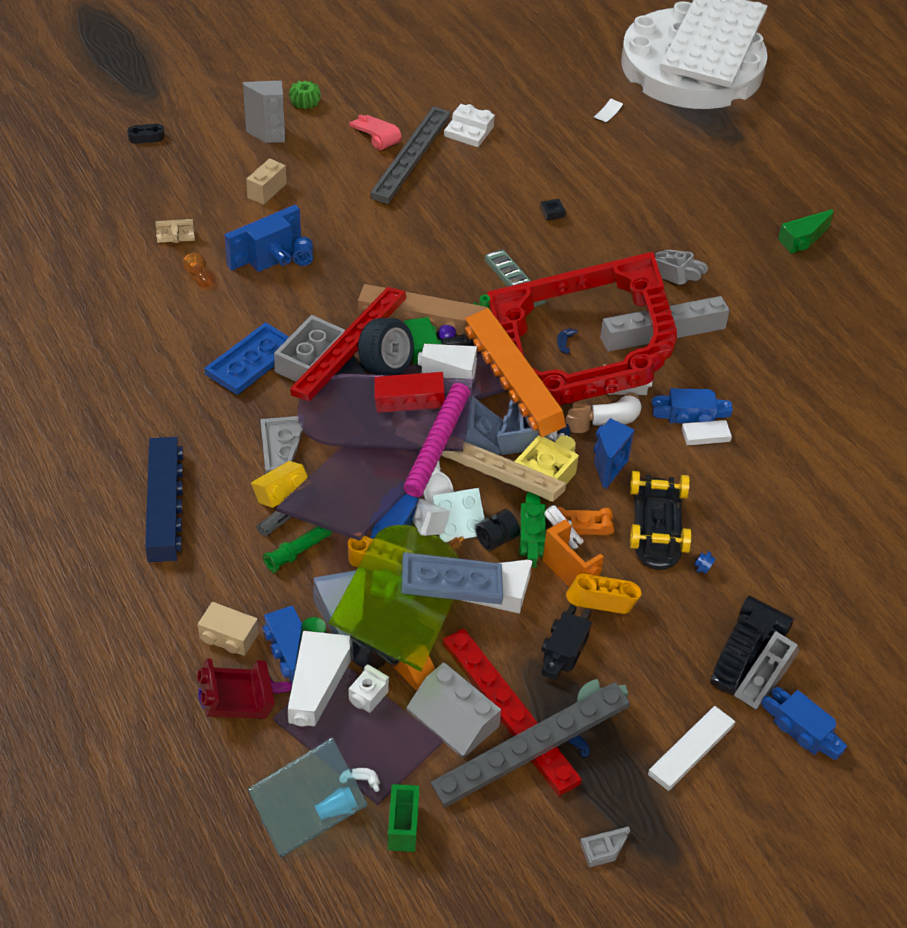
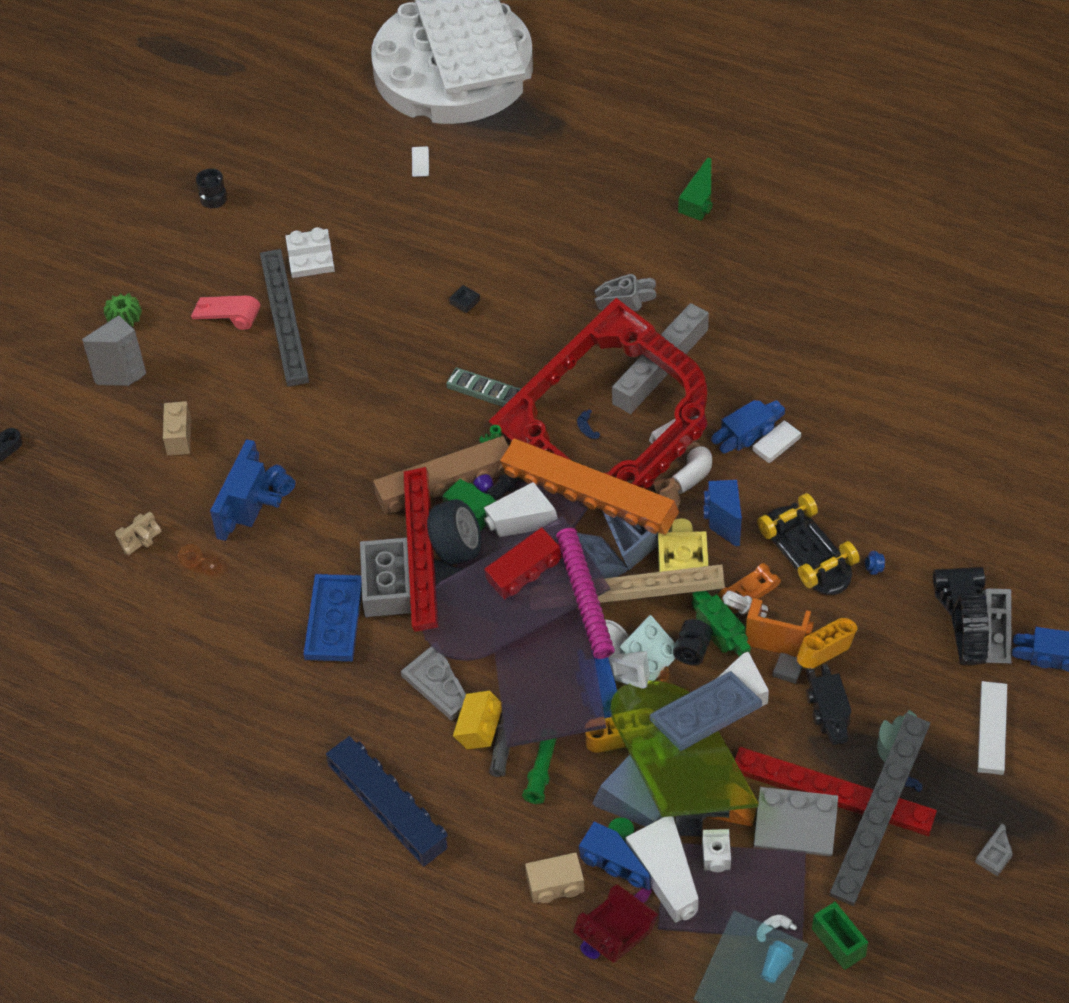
camera: 30 degrees left, 5 degrees up
(439, 52) = (211, 188): none -> black wheel
(557, 596) = (787, 668): none -> dark grey tile

